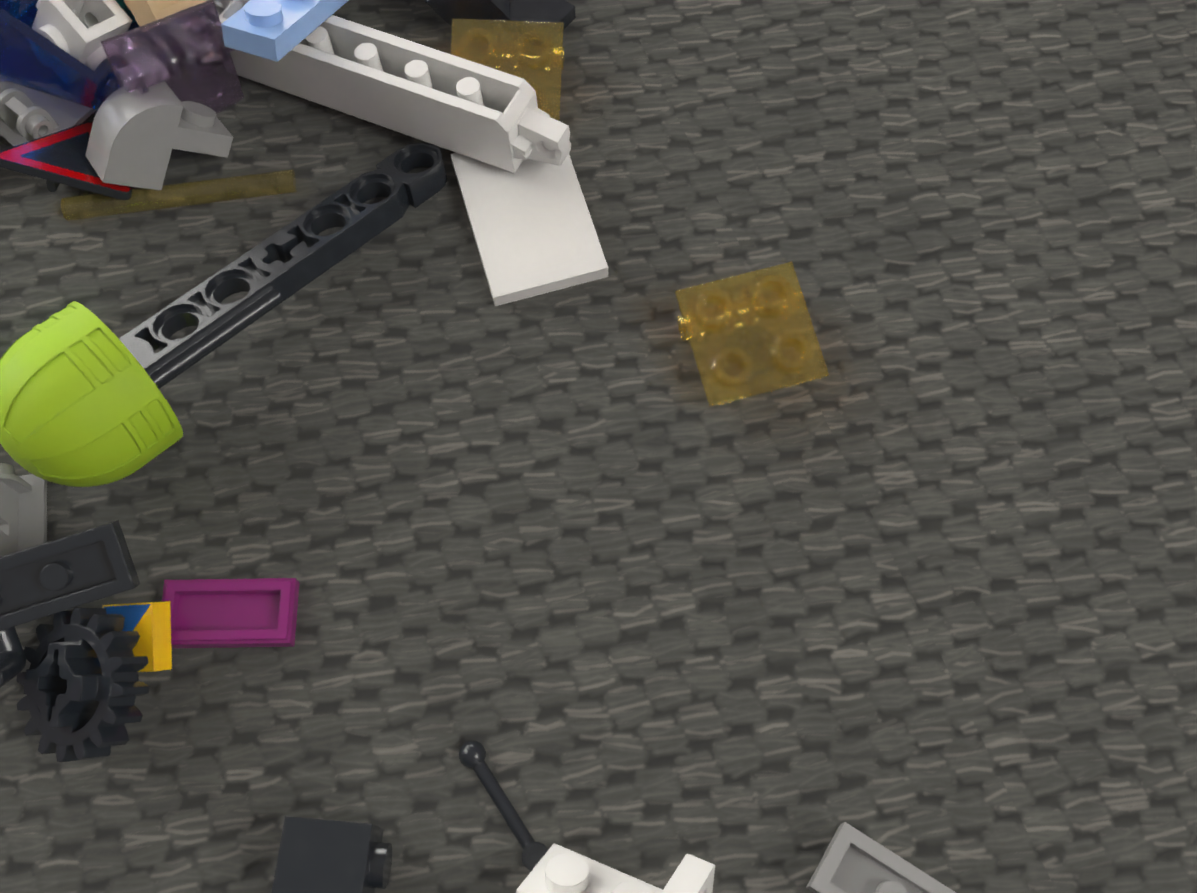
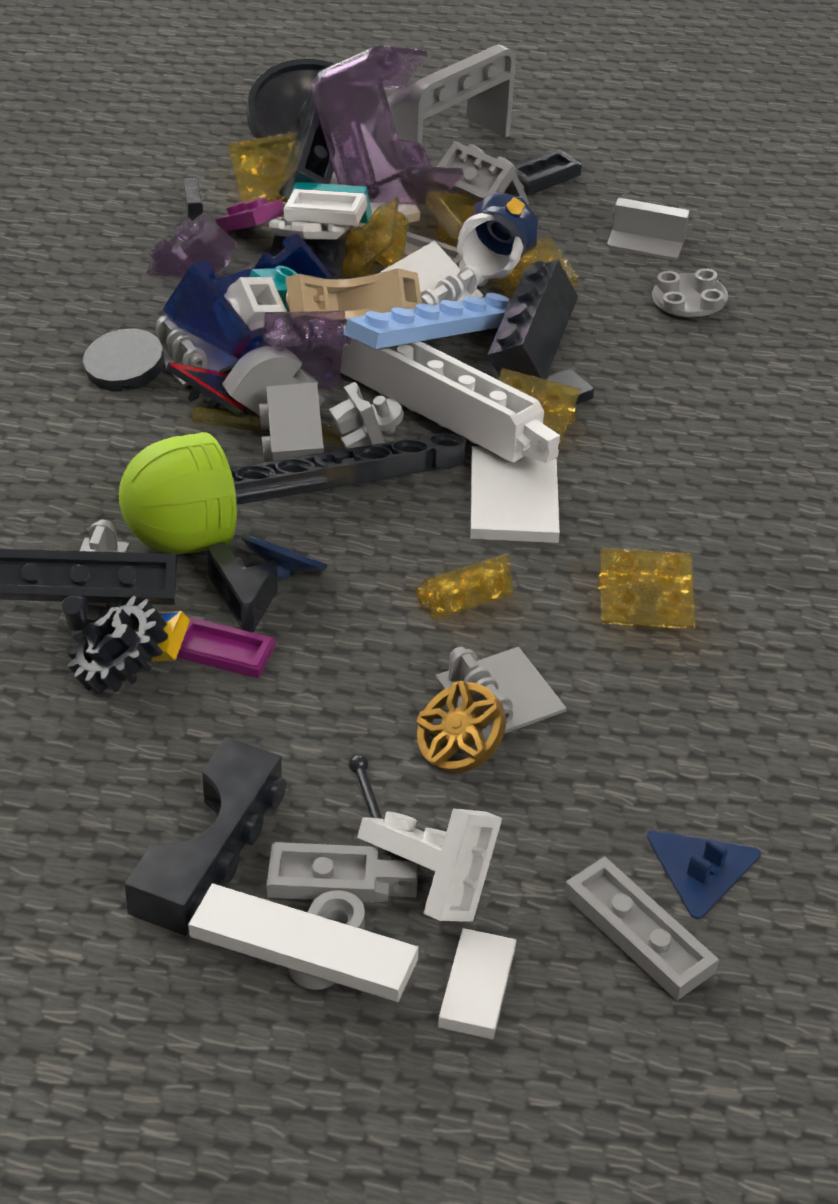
camera: 15 degrees right, 25 degrees down
(205, 203) = (292, 421): none -> light grey brick
(231, 512) = (243, 589): none -> black slope
(259, 435) = (286, 559): none -> dark blue dish
(299, 173) = (371, 419): none -> light grey hips
(533, 389) = (466, 587): none -> clear yellow hinge
(591, 662) = (461, 727): none -> pearl gold wheel
(616, 567) = (511, 679): none -> light grey hinge
(957, 770) = (701, 867): none -> dark blue piece

